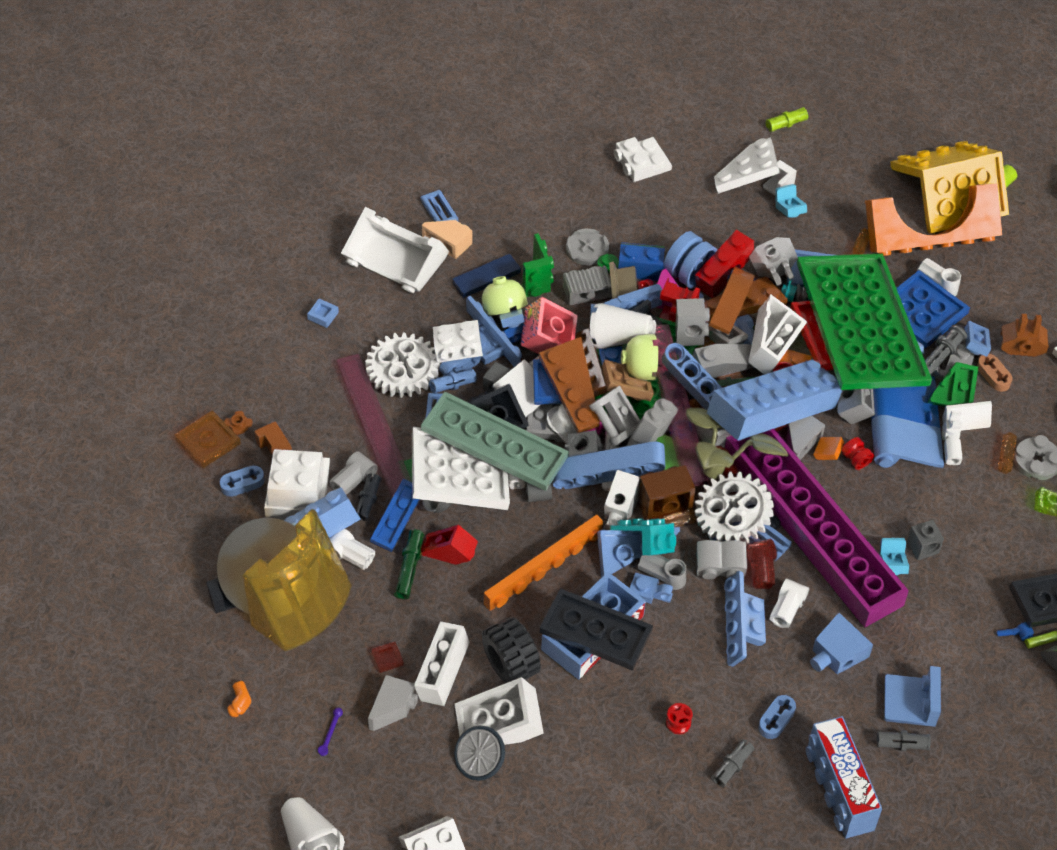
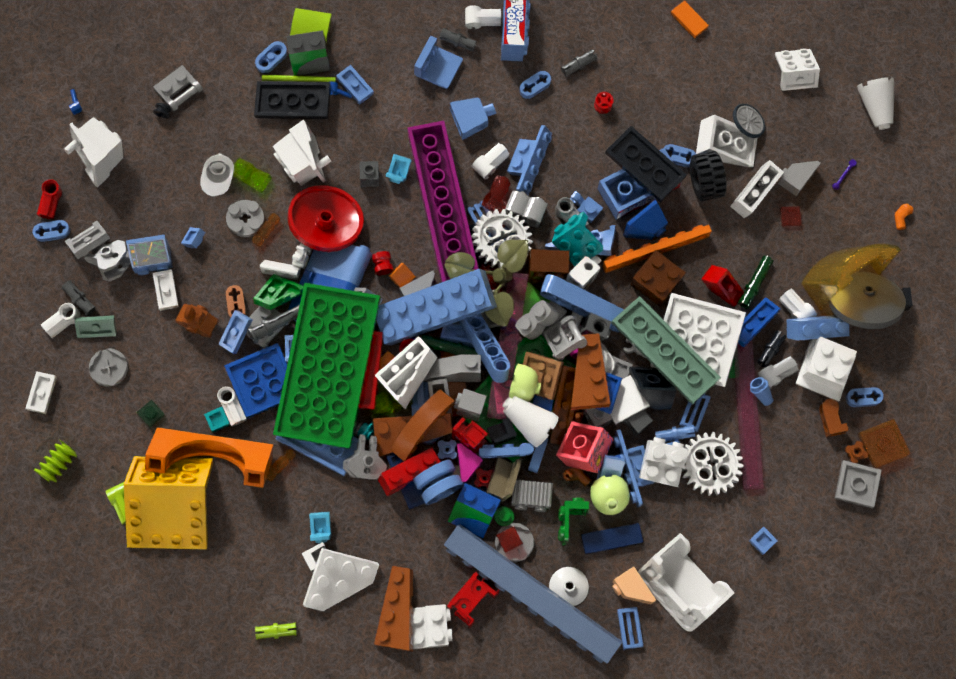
camera: 165 degrees left, 20 degrees up
(229, 391) = (857, 484): none -> light grey plate
(369, 444) = (761, 390): none -> medium blue cone
(516, 233) = (577, 578): none -> white dish
(530, 527) = (657, 278): none -> reddish brown brick
(551, 204) = (532, 593): none -> sand blue brick
(556, 685) = (680, 151): none -> medium blue beam
(568, 576) = (647, 223): none -> blue slope
(594, 241) = (509, 539): none -> clear red tile
(609, 188) = (470, 597): none -> red piece
(679, 158) = (395, 619): none -> dark orange wing
(892, 777) = (480, 17): none -> white piece
(948, 260) = (217, 419): none -> teal plate
(948, 473) = (325, 218): none -> red dish
(1000, 642) = (355, 84): none -> medium blue plate
(1012, 525) = (299, 155): none -> white piece
(1017, 253) = (150, 413): none -> clear green plate

